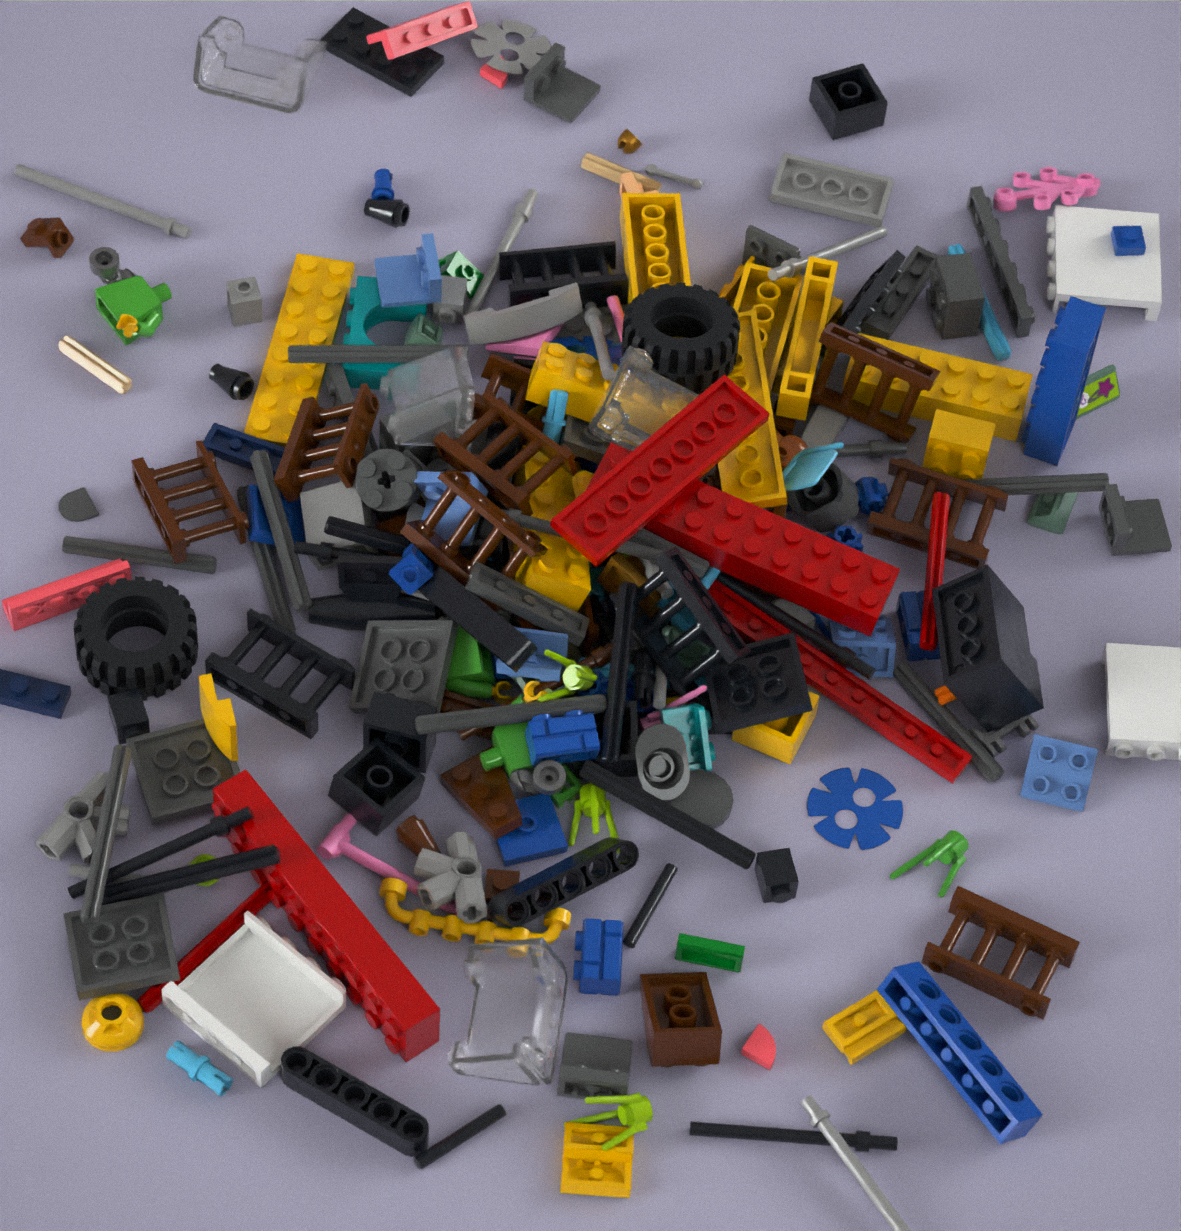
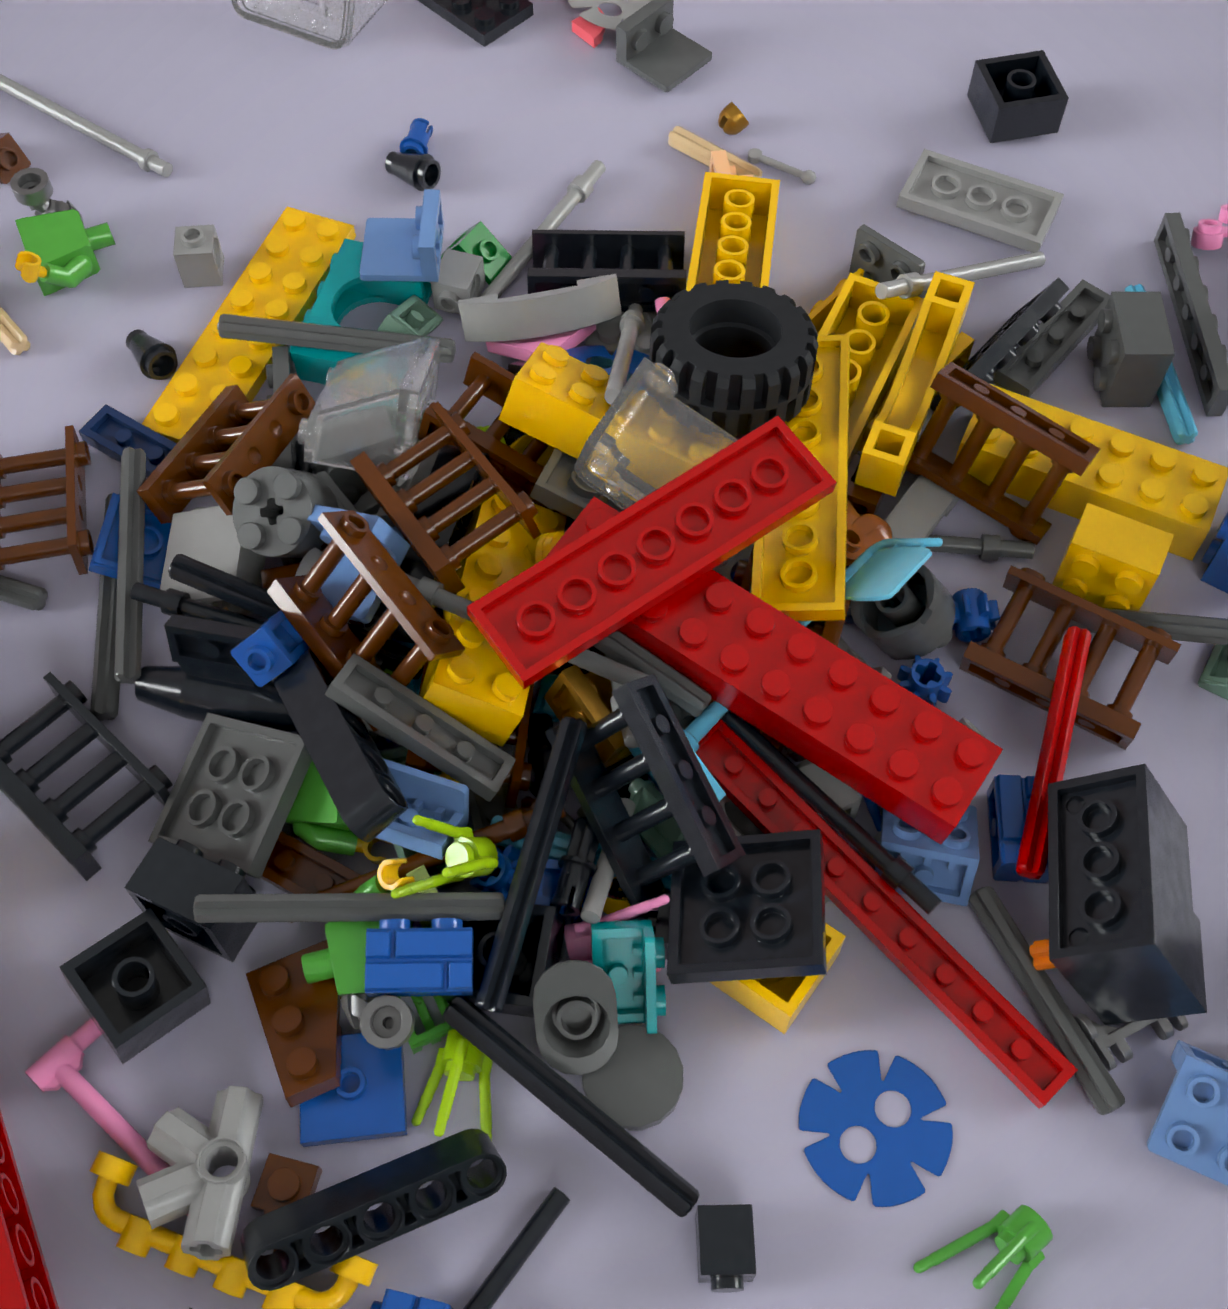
camera: 15 degrees right, 5 degrees up
(415, 836) = (179, 1080): reddish brown cone -> none
(555, 414) = (532, 450): medium azure axle -> none

